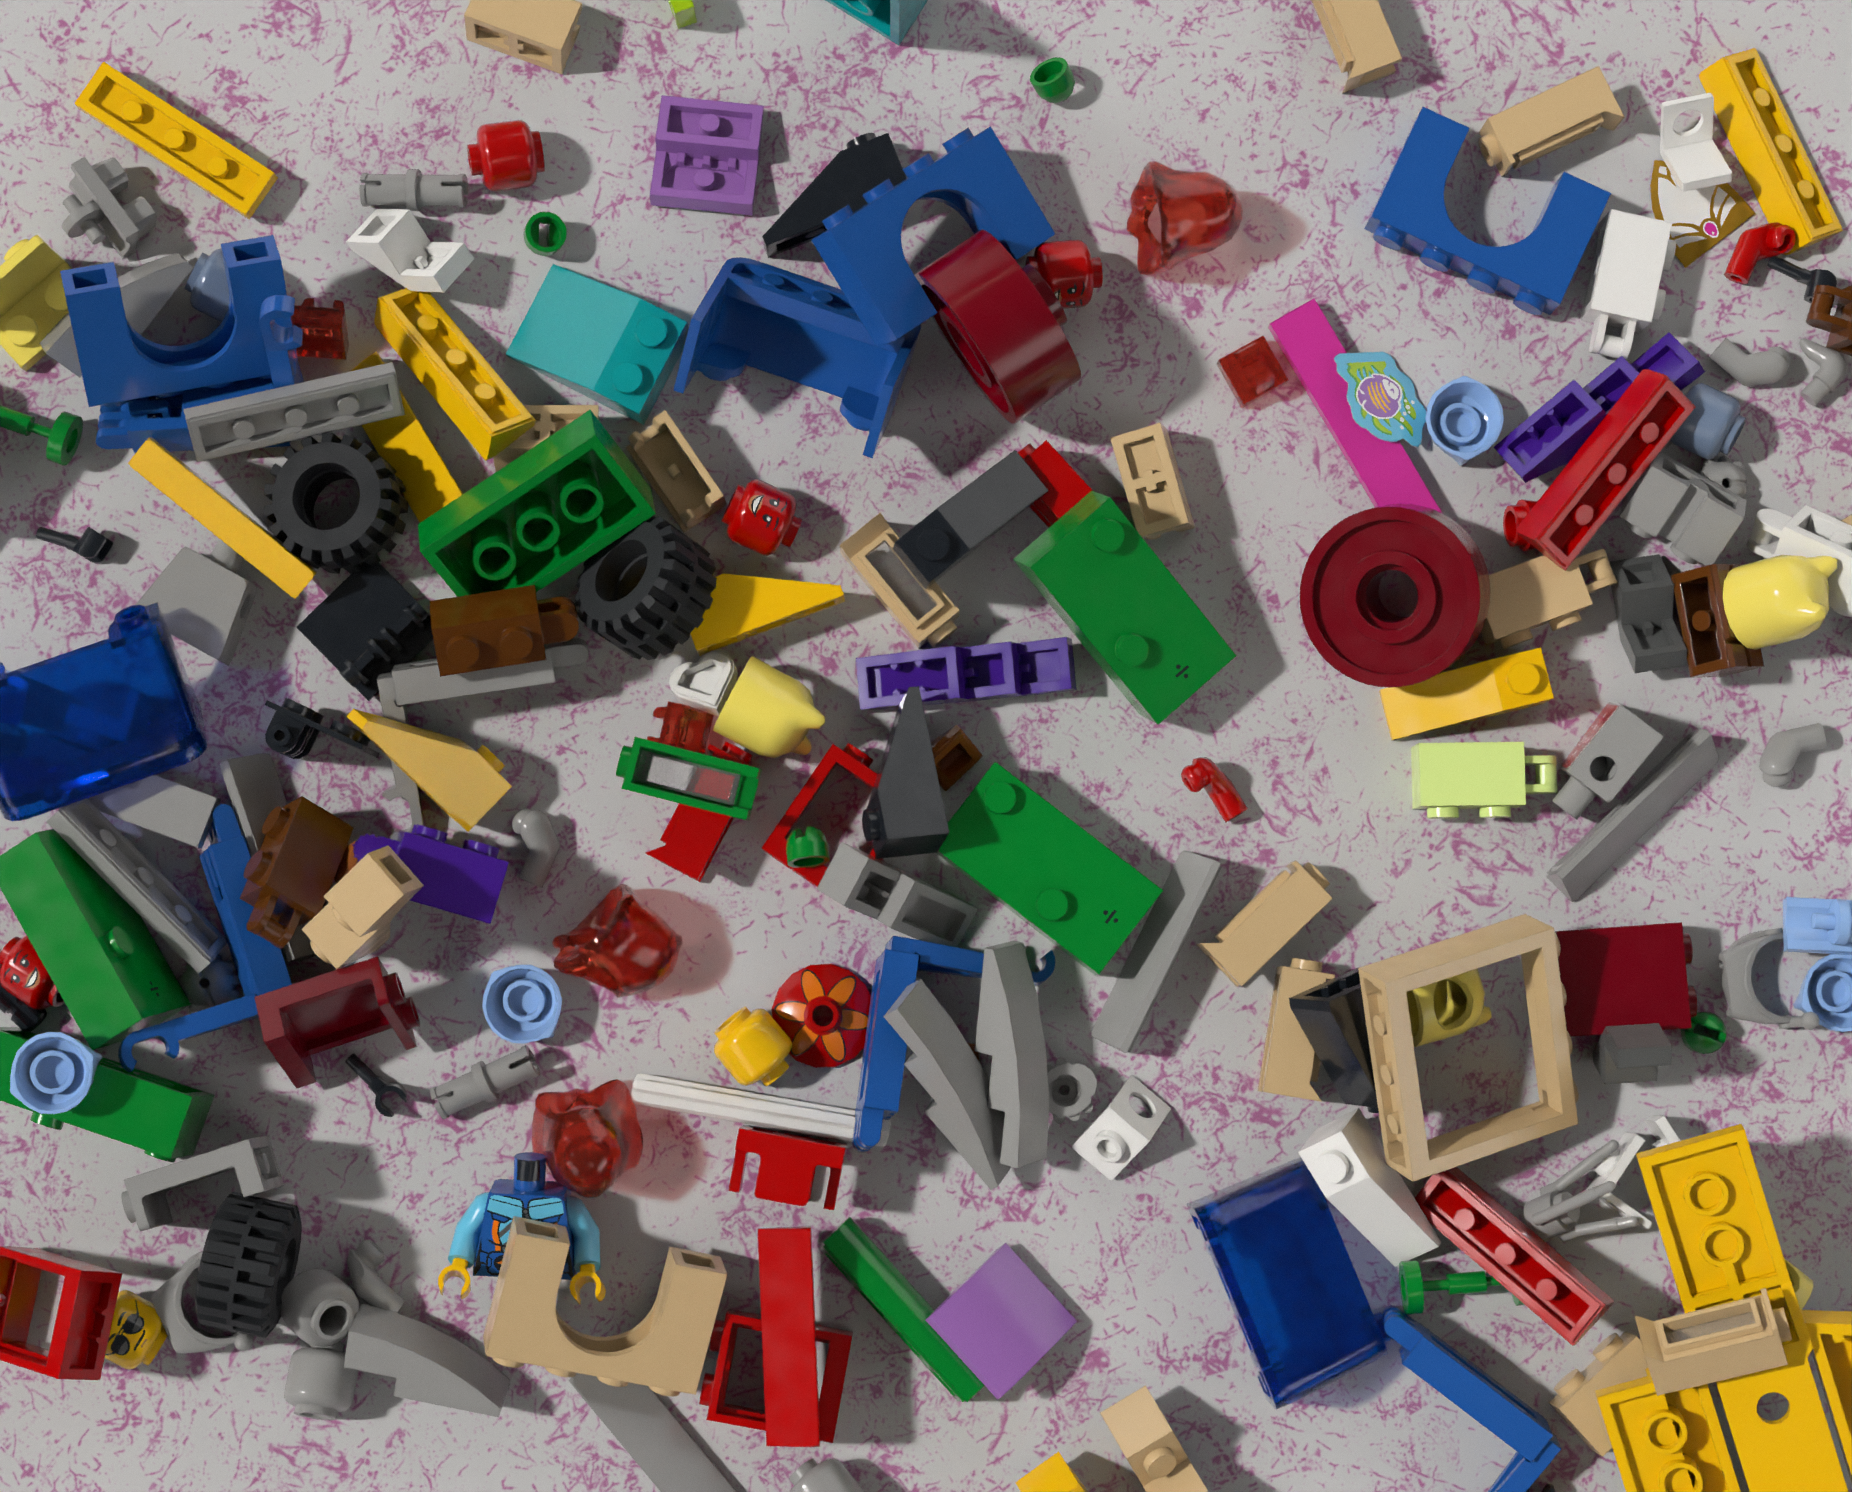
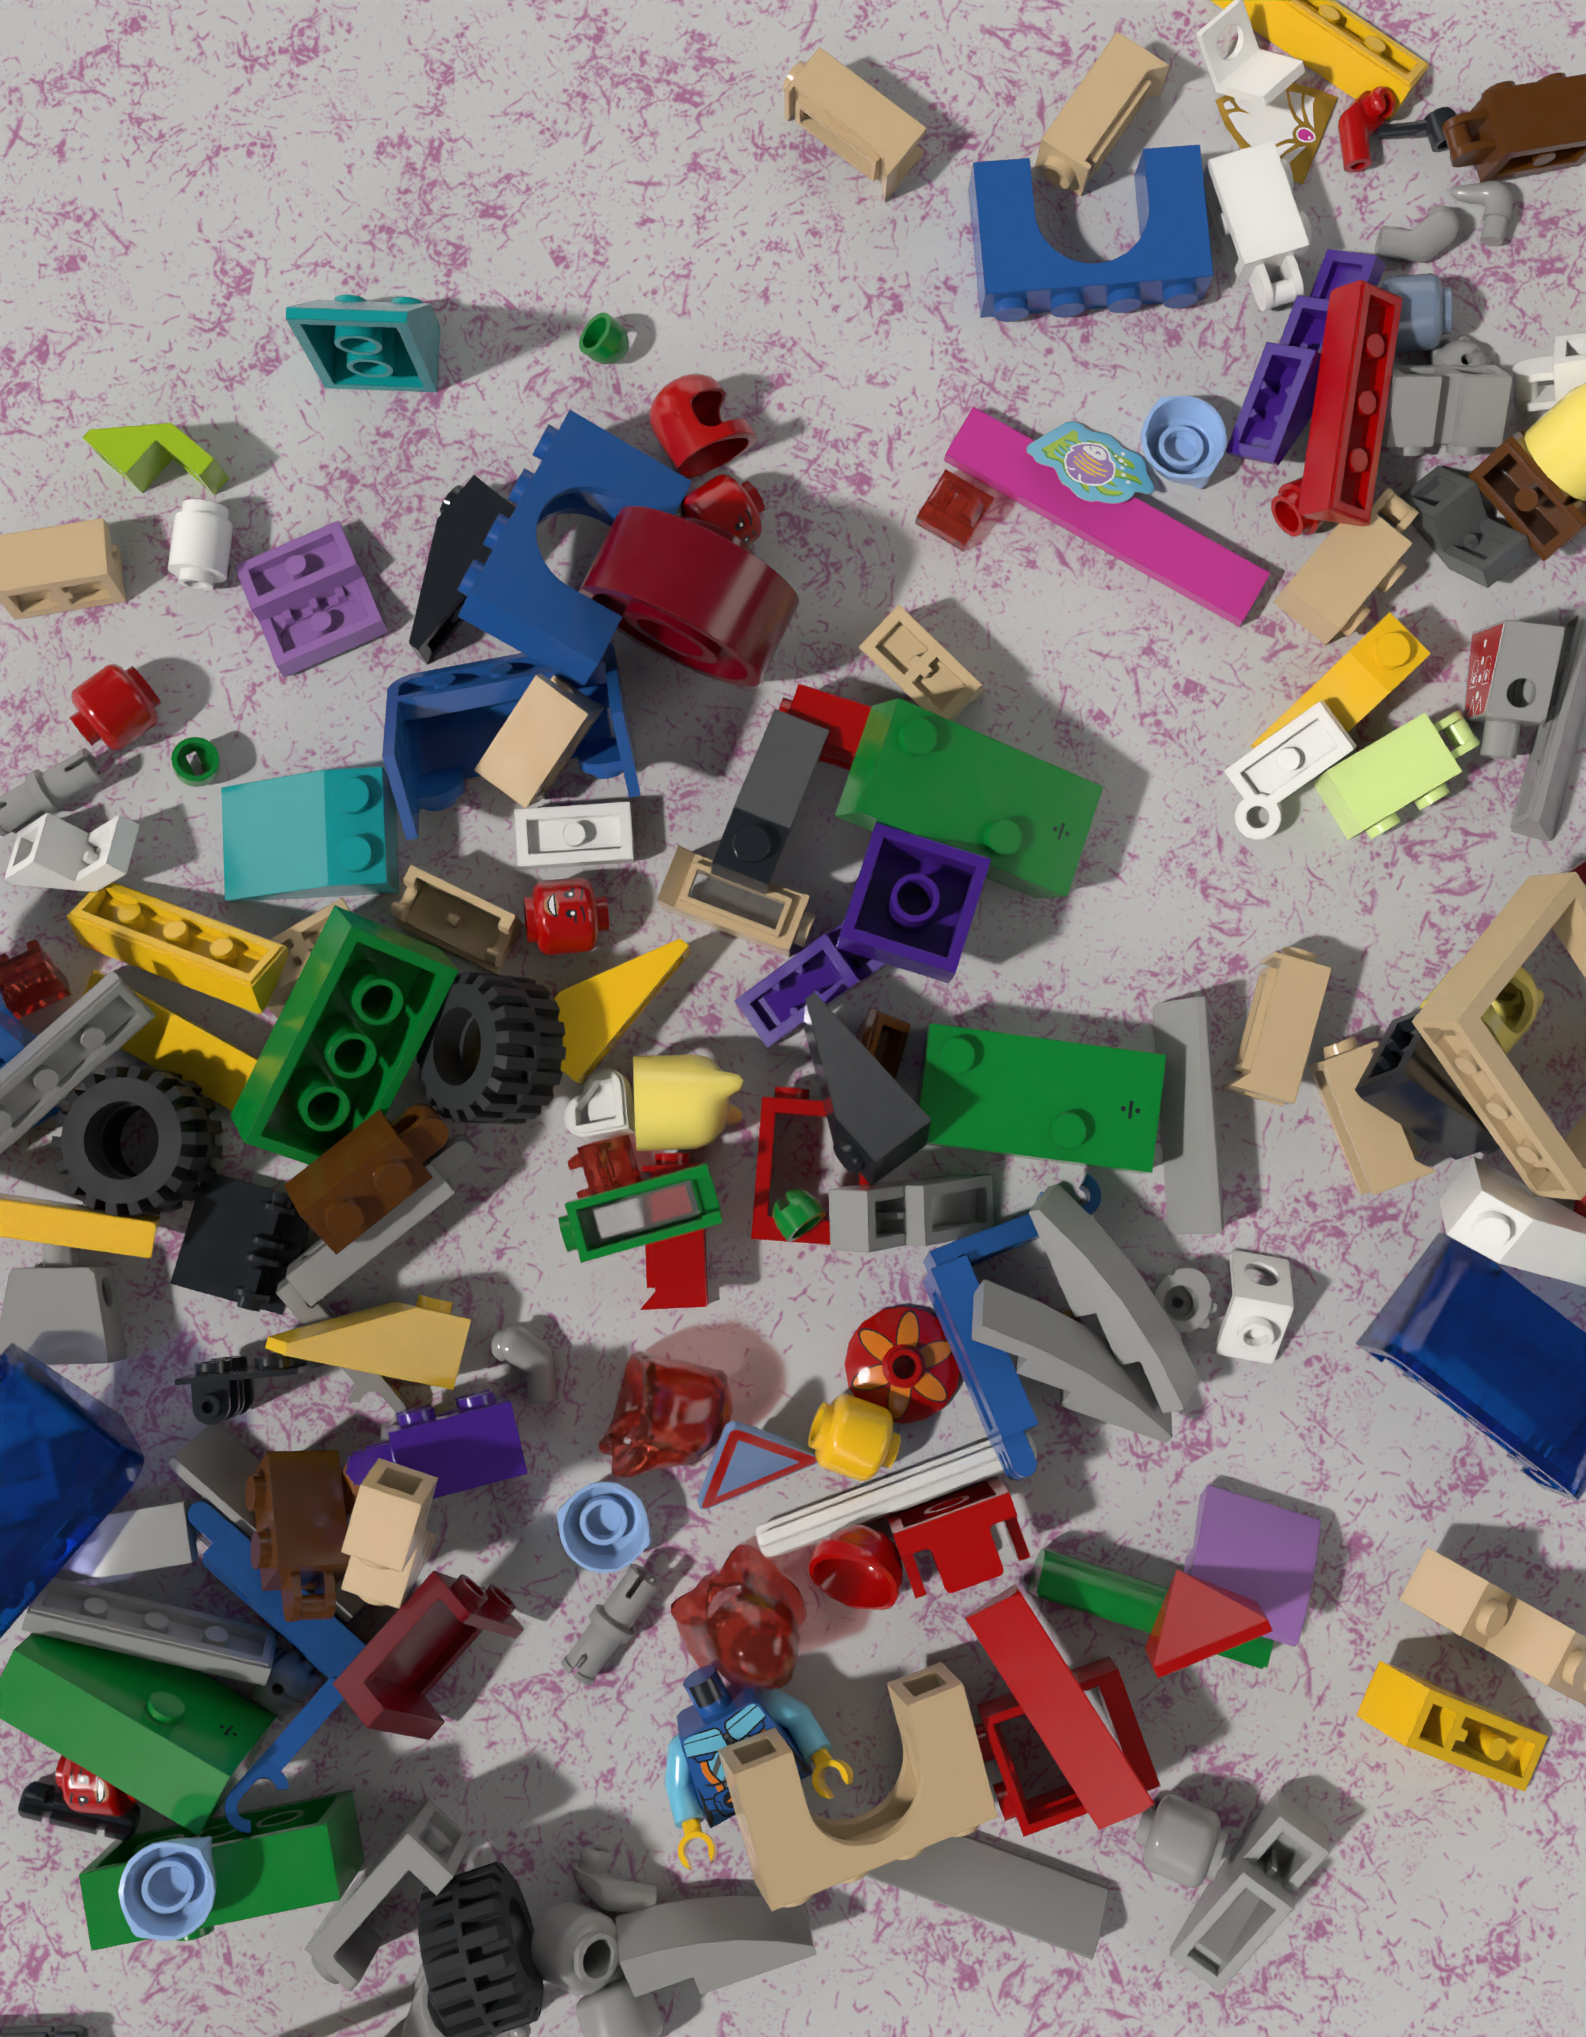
camera: 25 degrees left, 0 degrees up
(375, 1083) = (508, 1688): black hand -> none
(645, 65) = (200, 544): none -> white brick
(662, 1019) = (748, 1460): none -> piece
(697, 1147) = (858, 1568): none -> red piece
(805, 458) = (574, 835): none -> white plate
(819, 368) = (538, 739): none -> tan hinge
(934, 1332) = (1200, 1623): none -> red slope
(1033, 660) = (913, 903): none -> dark purple brick
(1082, 190) = (691, 428): none -> red helmet
(1195, 215) = (817, 381): clear red piece -> none
(1207, 775) = (1141, 920): red arm -> none
(1344, 604) = (1261, 686): dark red piece -> none
(1392, 720) = (1285, 764): none -> white hinge

